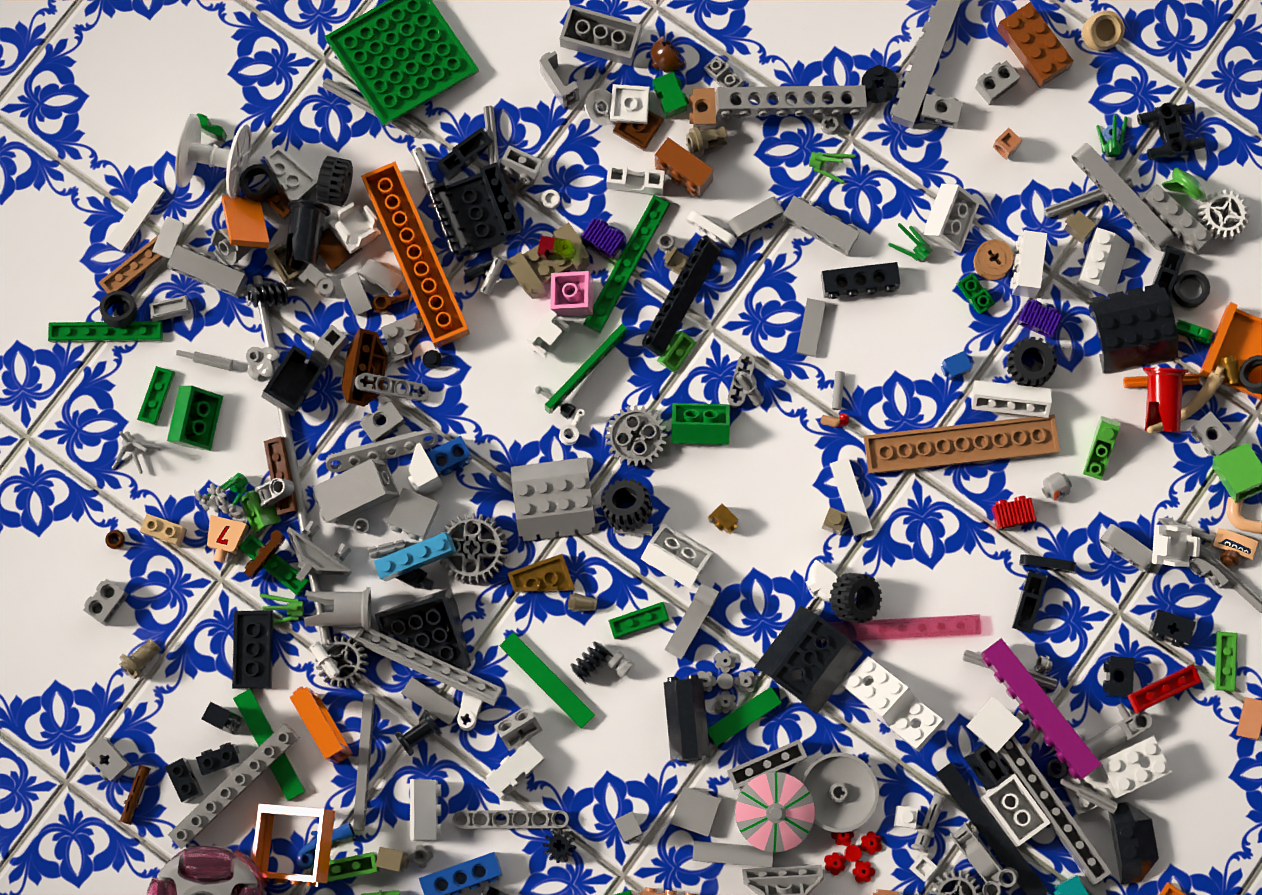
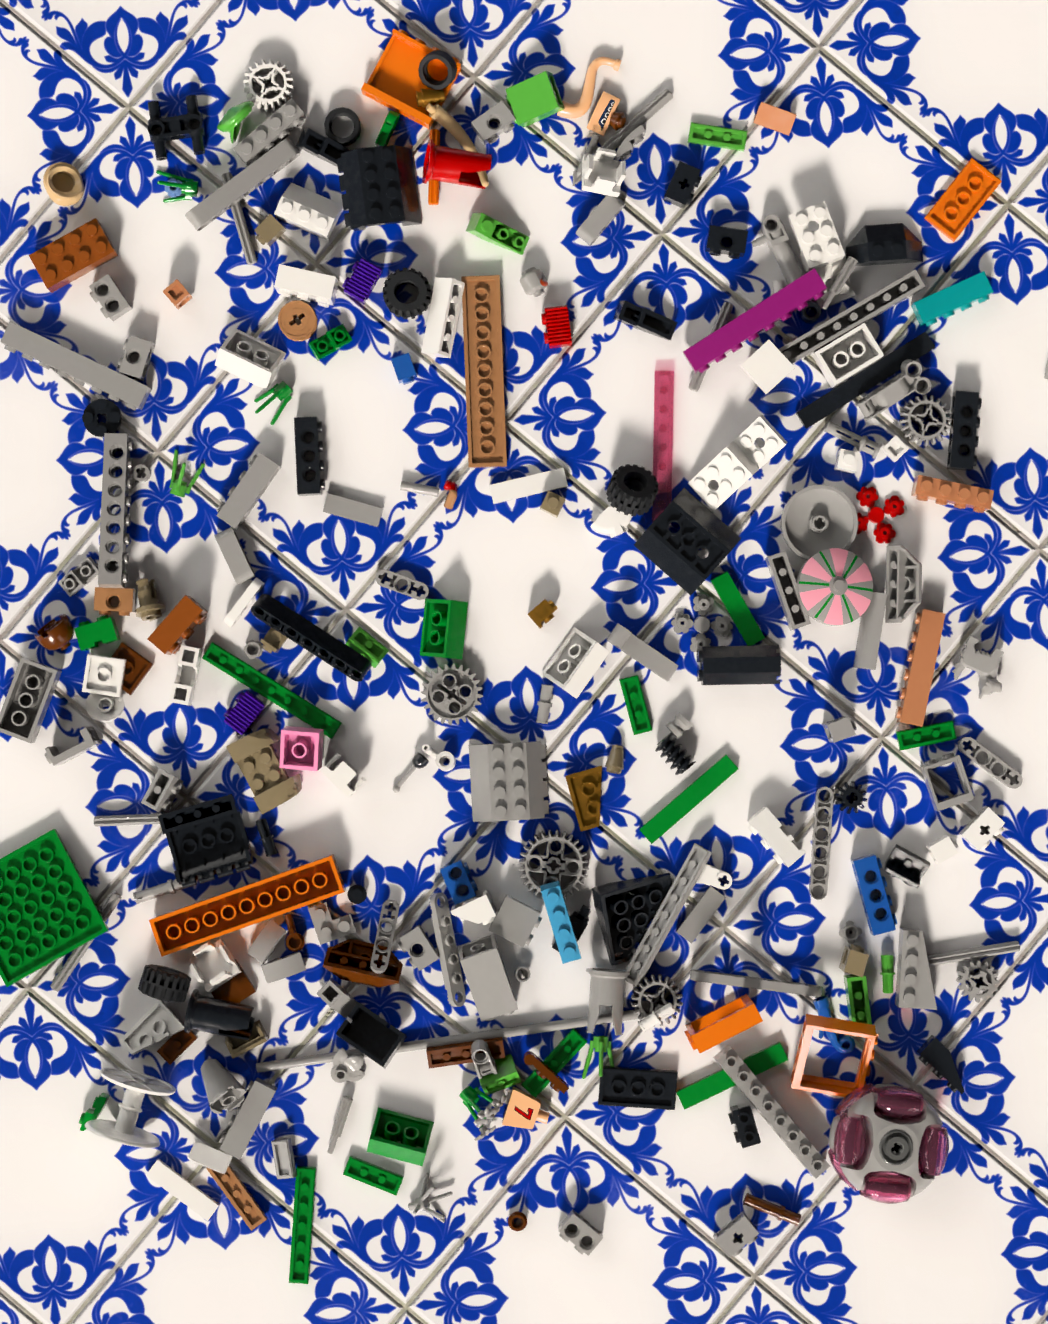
camera: 90 degrees left, 10 degrees up
(123, 320) = (268, 1215): black tyre -> none
(137, 661) = (640, 1200): dark tan piece -> none
(163, 530) = (513, 1172): tan brick -> none
(184, 780) = (762, 1160): black brick -> none
(222, 718) = (707, 1120): black brick -> none
(245, 222) = (202, 1077): orange tile -> none
(252, 171) = (149, 1072): black tyre -> none
(266, 293) = (277, 1058): black piece -> none
(312, 558) = (554, 1022): light grey connector -> none
(318, 280) = (270, 1000): light grey leg -> none
(387, 548) = (546, 949): light grey axle -> none
(418, 733) = (733, 928): black piece -> none
(424, 810) = (808, 926): white slope -> none
(464, 154) = (143, 848): black slope -> none
(492, 275) = (275, 827): light grey pin -> none
(518, 727) = (735, 830): light grey brick -> none
(550, 199) = (198, 763): white tile -> none
(556, 247) = (252, 761): leg -> none
(586, 369) = (380, 739): green tile -> none
(626, 492) = (510, 715): black tyre -> none
(695, 811) = (826, 663): light grey tile -> none
(750, 388) = (413, 576): light grey axle -> none
(987, 767) = (805, 378): black brick -> none
(1043, 664) = (708, 313): light grey plate -> none
(1047, 563) = (609, 299): black beam -> none
(1164, 688) = (741, 199): red tile -> none

